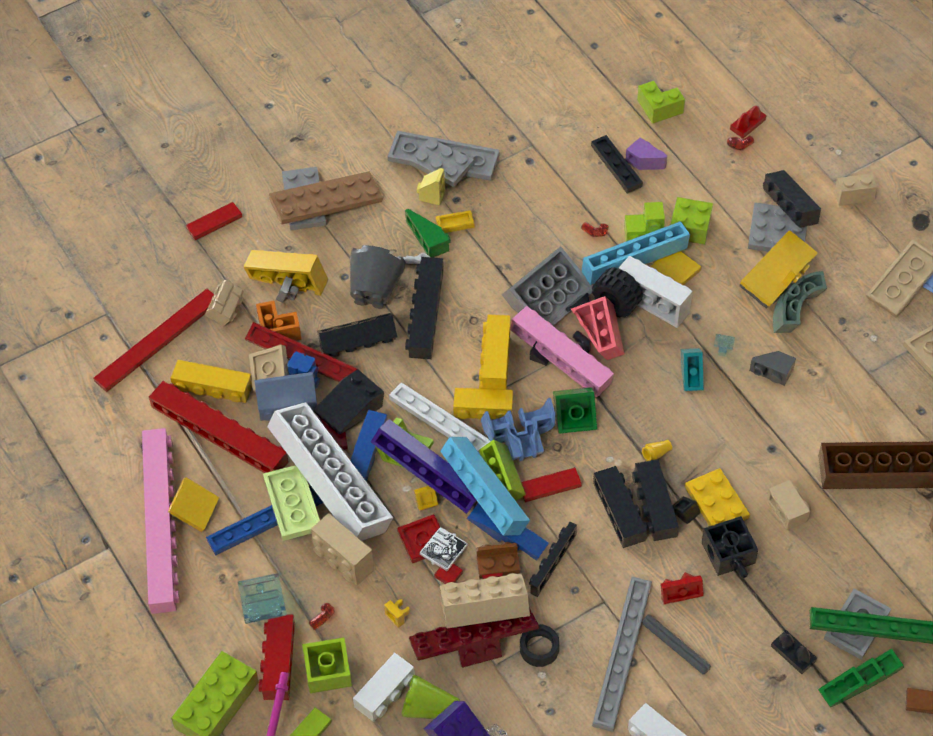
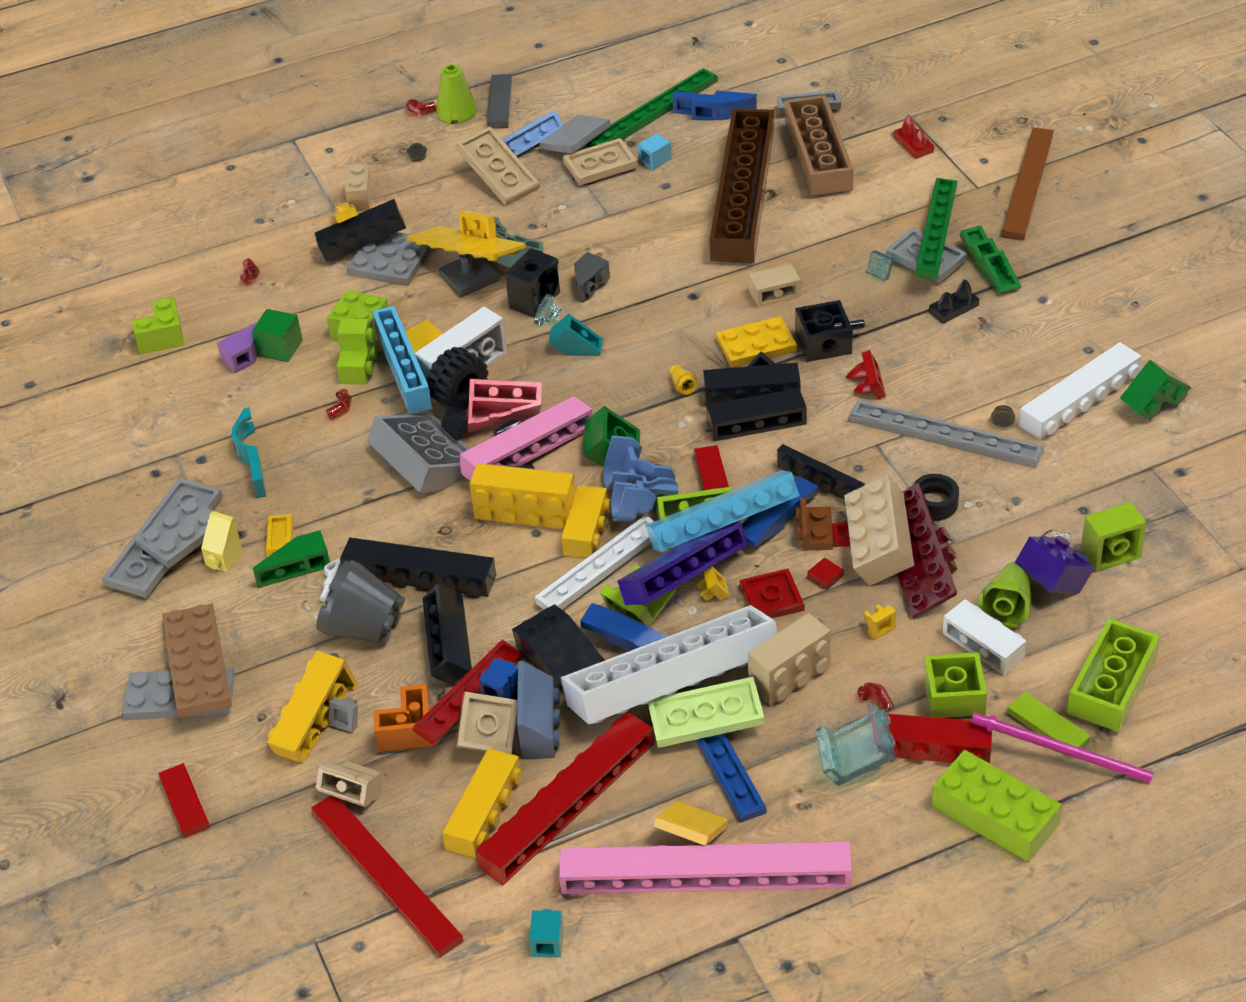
camera: 80 degrees left, 10 degrees down
(105, 433) = (546, 933): none -> teal brick
(443, 549) = (794, 571): piece -> none
(523, 189) = (248, 453): none -> teal piece
(616, 164) = (242, 375): black plate -> none
(648, 695) = (1003, 416): none -> clear smoke plate
(659, 173) = (277, 335): none -> green head
(676, 644) = (939, 389): dark grey axle -> none
(748, 122) = (219, 262): red tile -> none
(749, 325) = (531, 281): none -> black piece
(811, 183) = (344, 211): none -> yellow plate
(833, 587) = (879, 265): none -> clear light blue tile

